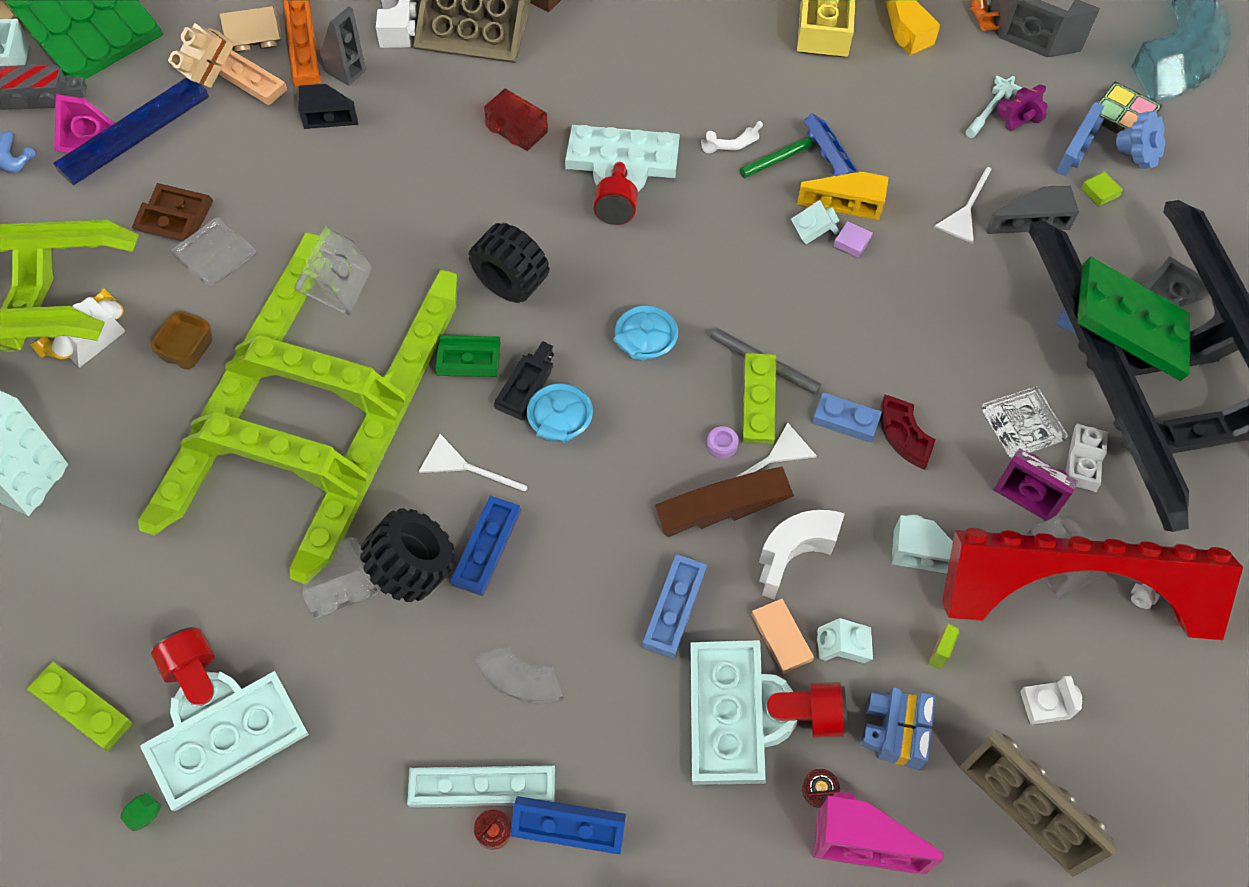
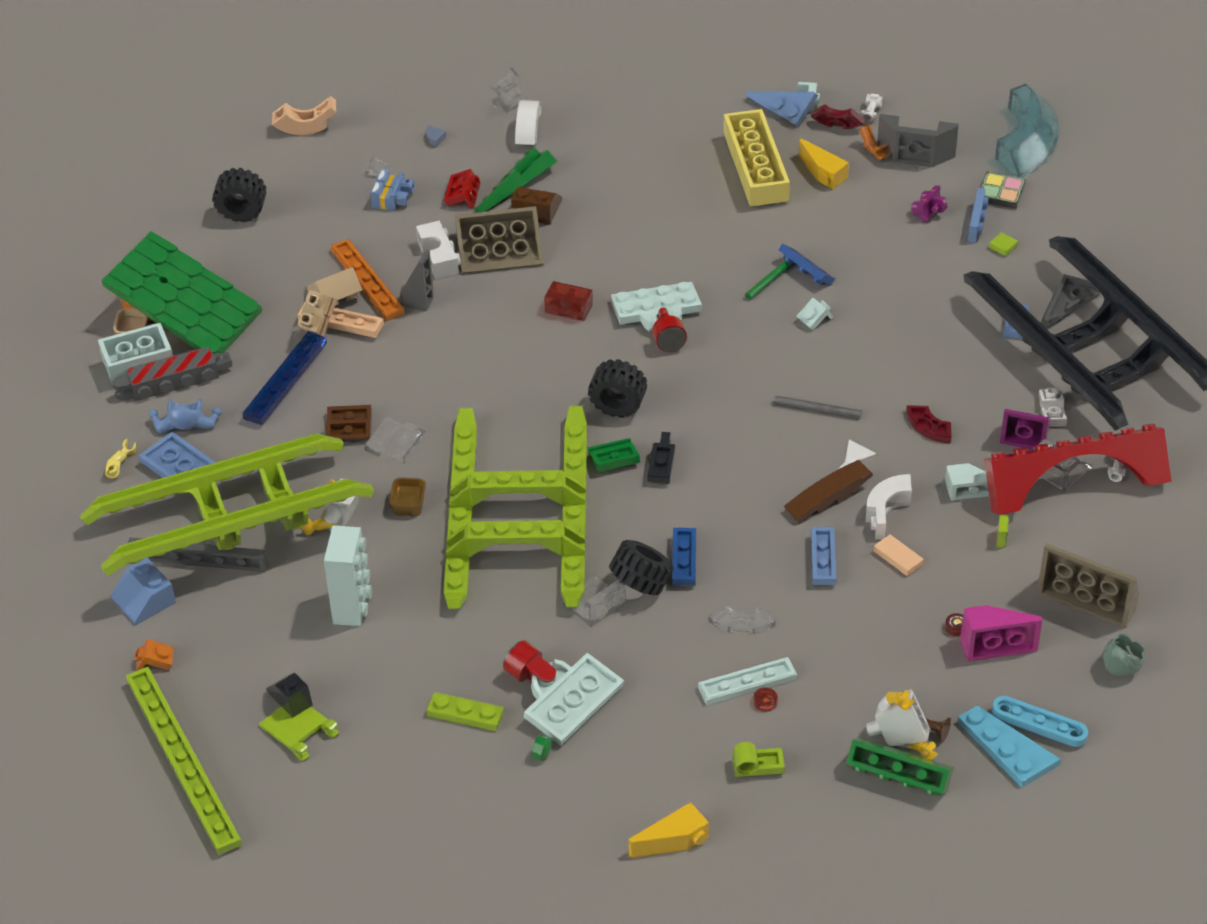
camera: 15 degrees left, 15 degrees down
(76, 122) = (244, 383): dark pink slope -> none
(325, 107) = (423, 327): black slope -> none
(334, 272) = (493, 425): clear slope -> none
(445, 458) = (627, 519): white piece -> none
(559, 412) = (694, 470): medium azure piece -> none
(568, 825) = (812, 681): blue plate -> none
(645, 332) = (729, 409): medium azure piece -> none
(722, 442) = (810, 461): lavender tile -> none
(743, 711) = (892, 597): light aqua plate -> none
(746, 138) = (741, 271): white piece -> none
(759, 398) = (824, 428): lime plate -> none
(845, 640) = (939, 543): light aqua bracket -> none
(846, 417) = (887, 425): medium blue plate -> none
(851, 194) = (832, 289): yellow slope -> none
(853, 239) = (844, 318): lavender tile -> none
(904, 729) = (995, 579): medium blue hips -> none
(960, 222) = (914, 289): white piece -> none
(1002, 88) = (909, 195): light aqua piece -> none
(1024, 421) = (1003, 395): clear tile -> none
(1046, 204) = (970, 260): dark grey slope -> none
(1052, 701) = (1082, 542): white bracket -> none
(1134, 318) = (1053, 313): green plate -> none
(1143, 140) = (1020, 204): medium blue plant -> none

